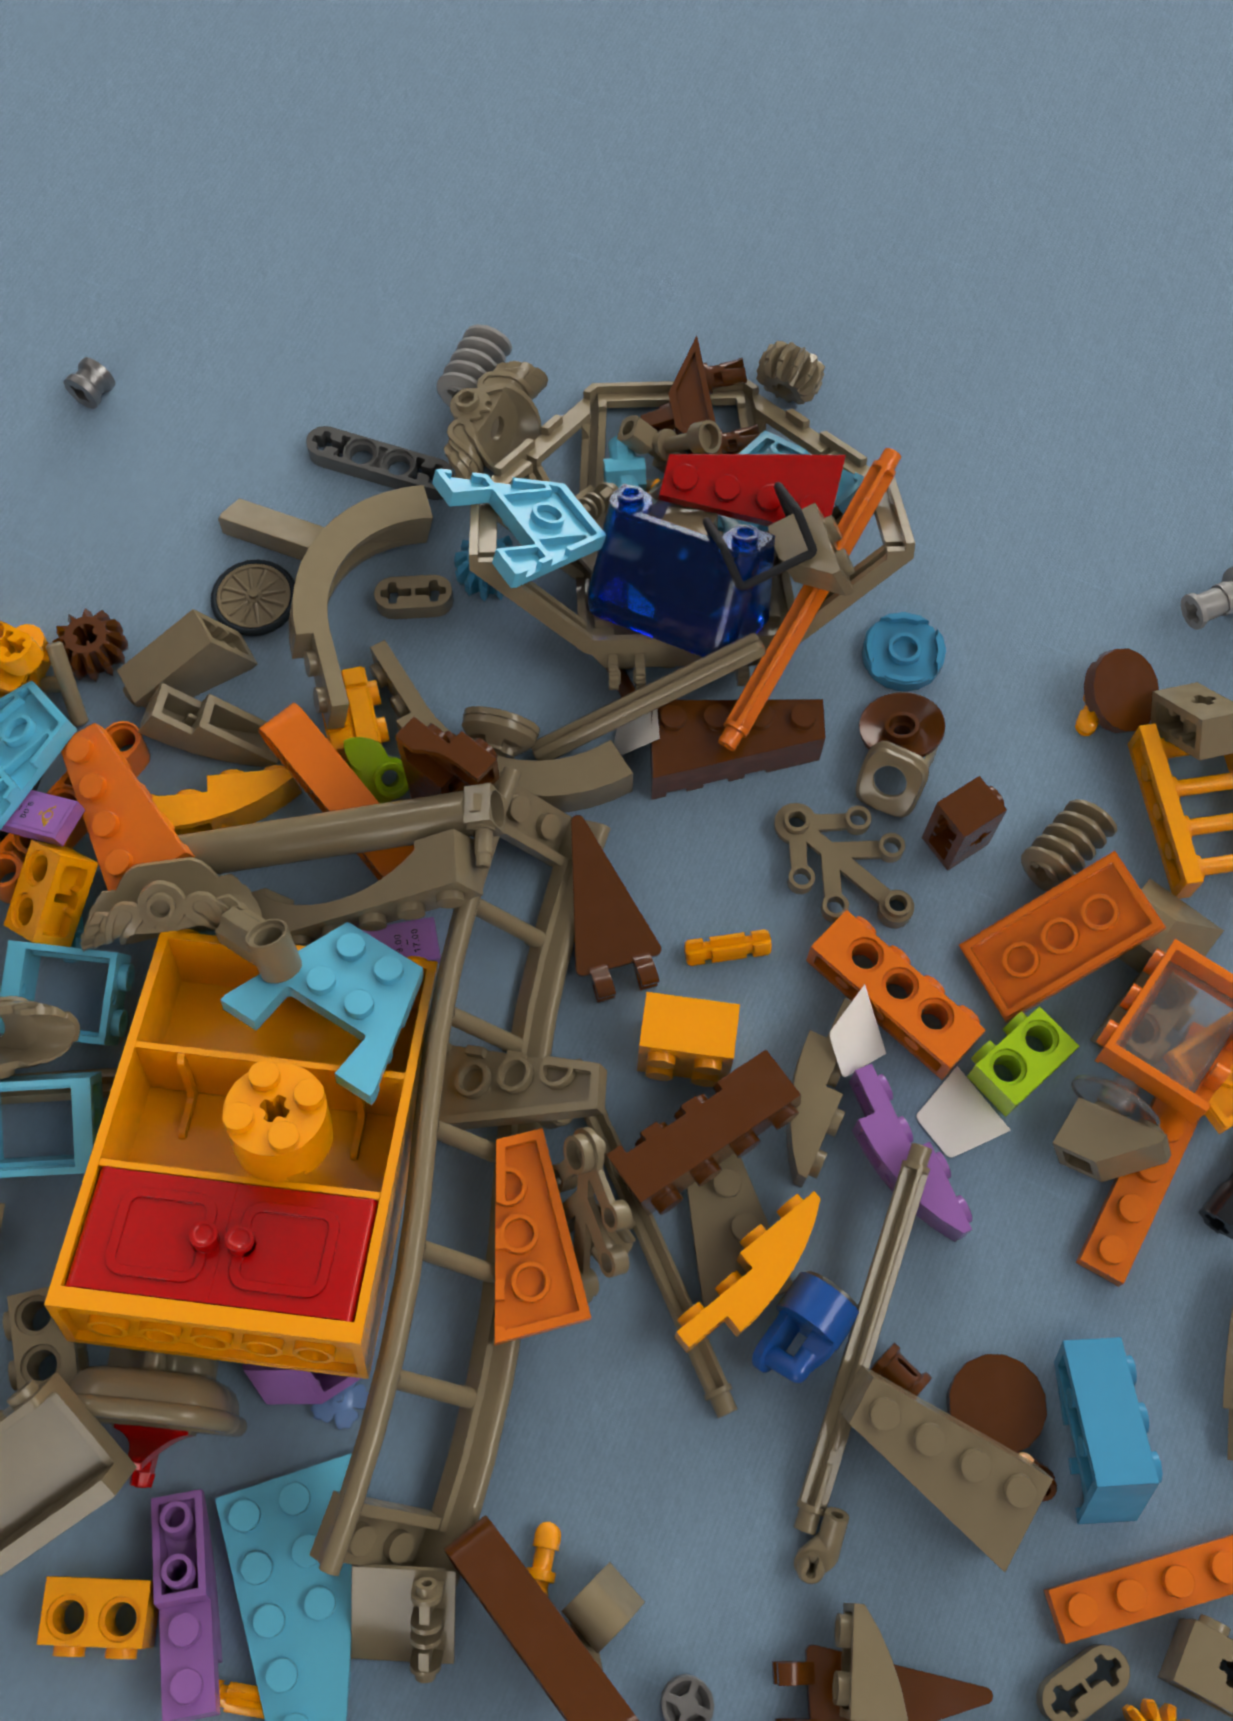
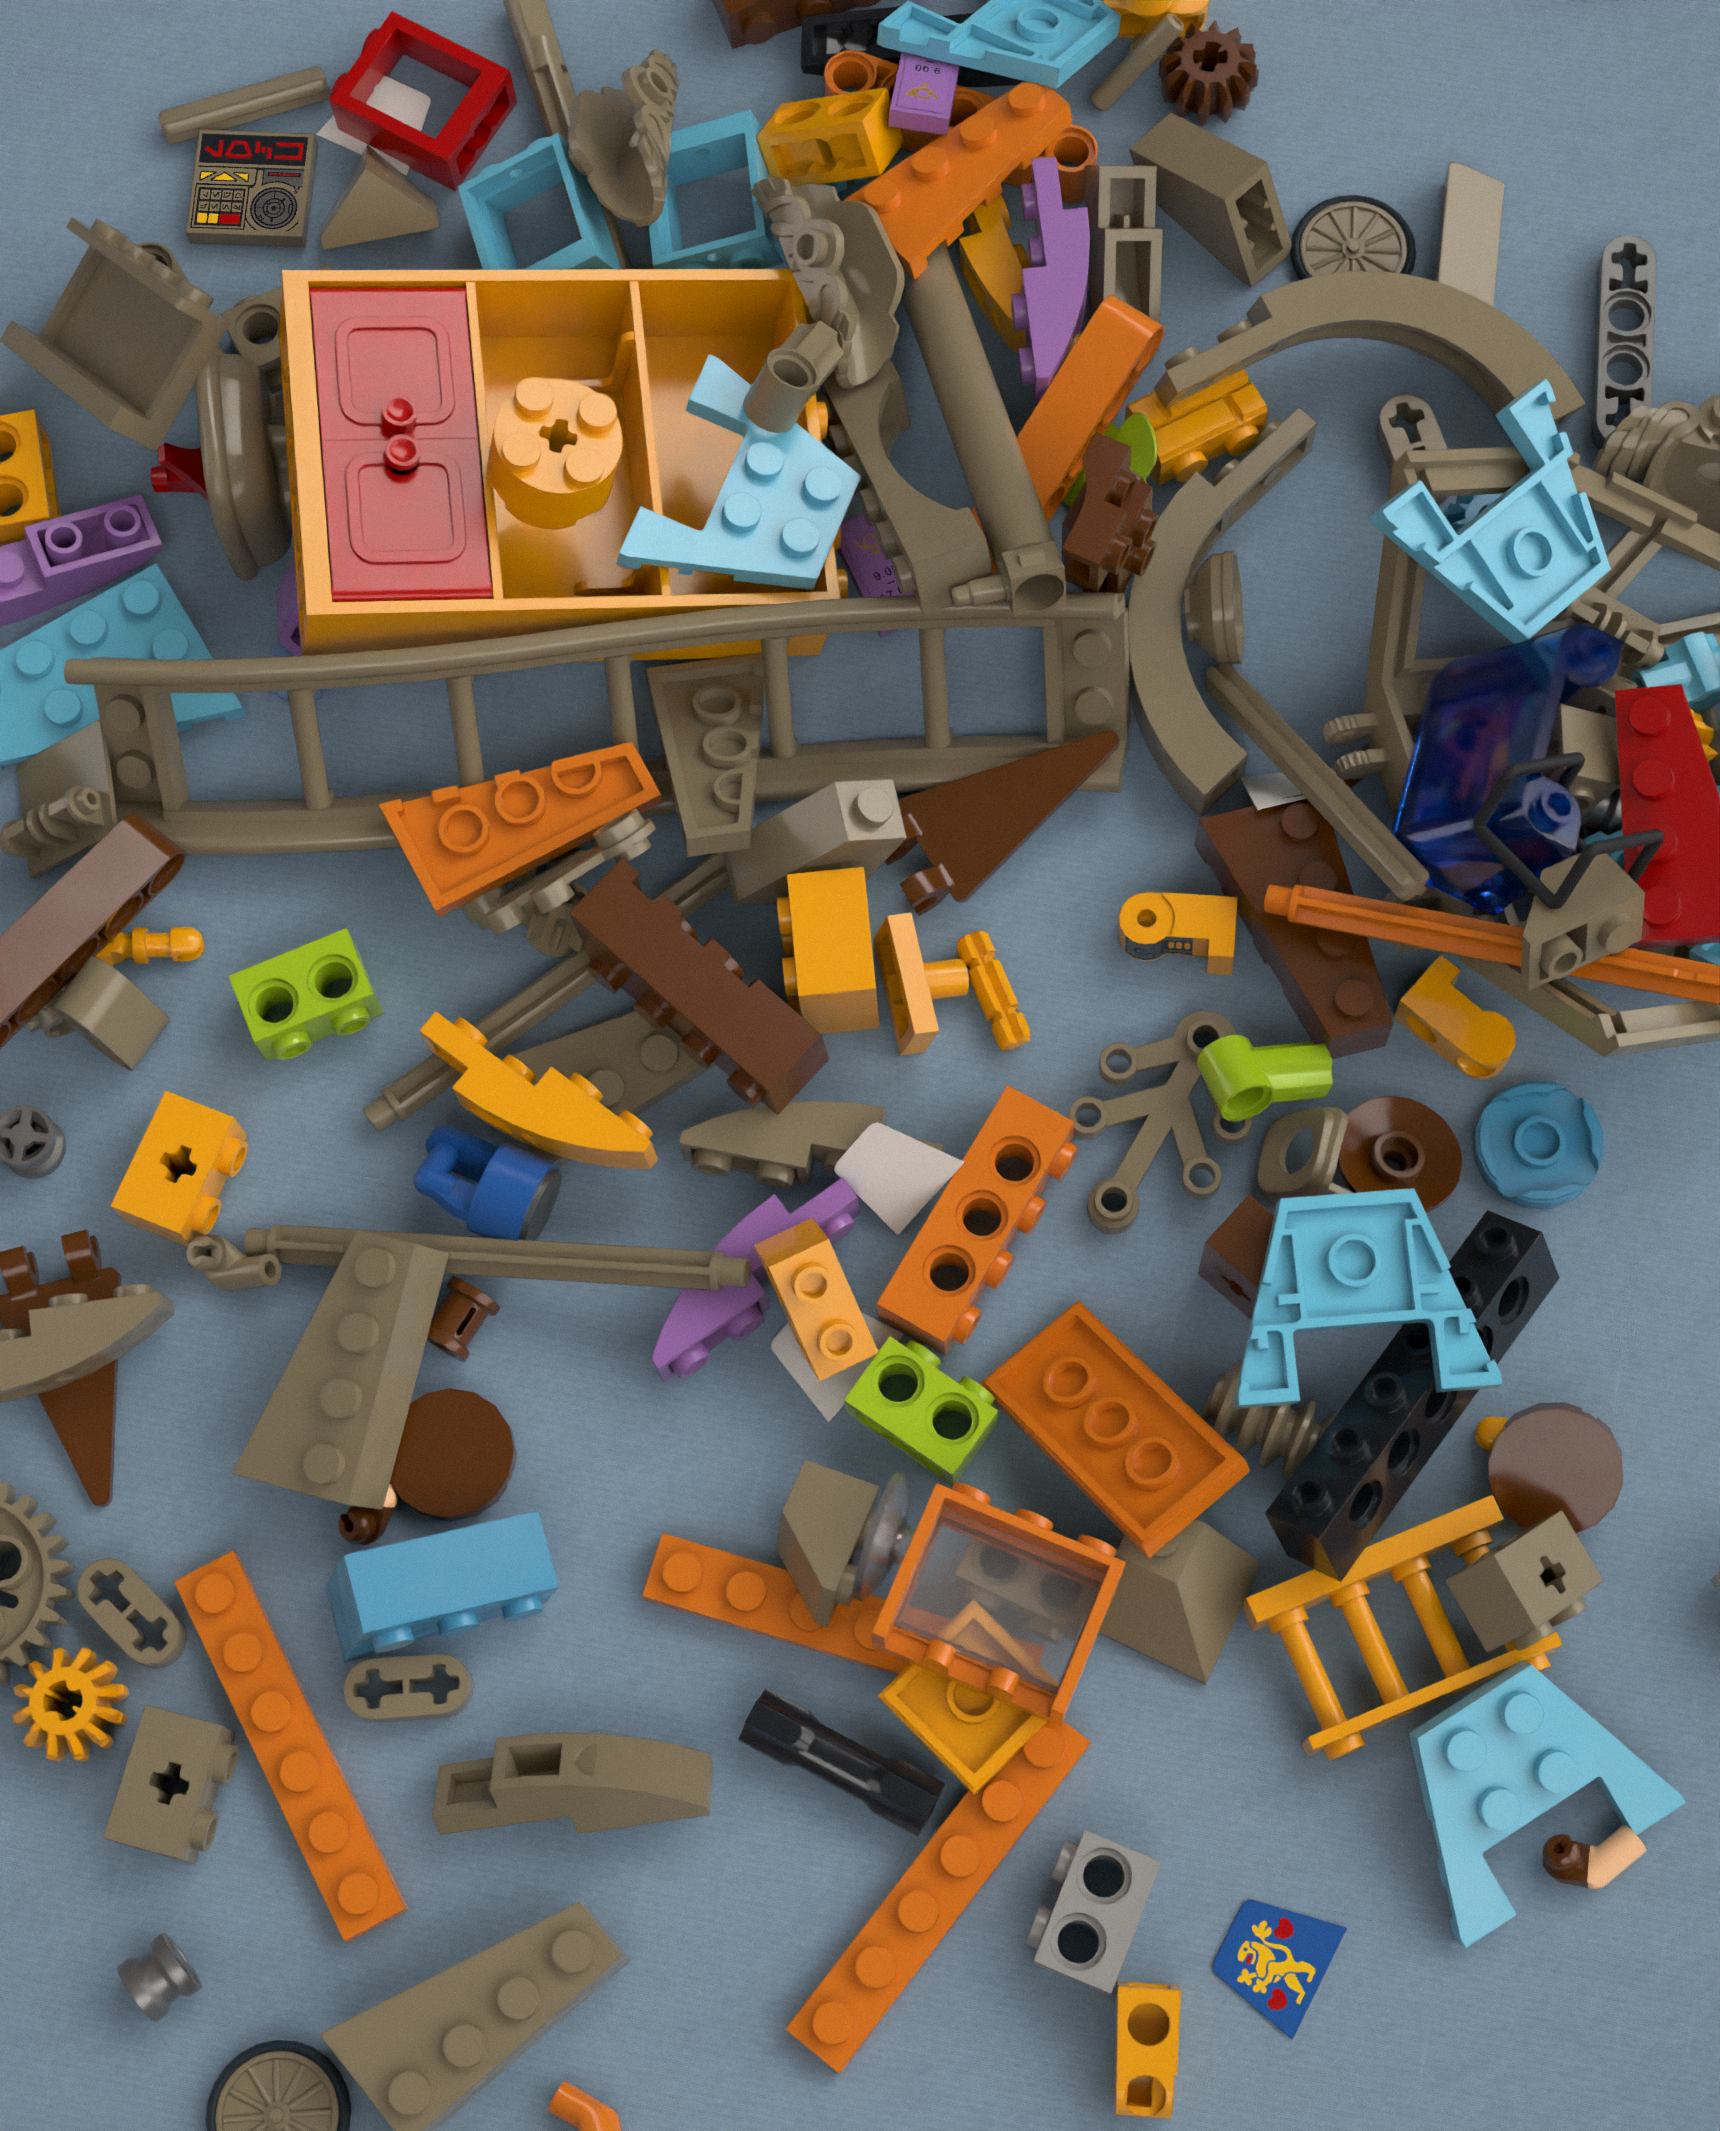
camera: 85 degrees right, 5 degrees up
(240, 768) = (1056, 282): none -> medium lavender slope
(607, 1444) = (302, 979): none -> lime brick
(612, 1021) = (830, 830): none -> dark tan slope
(710, 820) = (1180, 925): none -> light orange leg
(715, 987) = (914, 984): none -> light orange tile
(754, 1602) = (176, 1139): none -> light orange brick
(820, 672) = (1455, 1026): none -> light orange leg
(835, 790) = (1251, 1078): none -> lime piece
(942, 1106) = (816, 1299): none -> light orange brick
(1004, 750) = (1356, 1266): none -> medium azure wing
(1072, 752) = (1396, 1415): none -> black brick
(1179, 1473) = (409, 1704): none -> dark tan beam

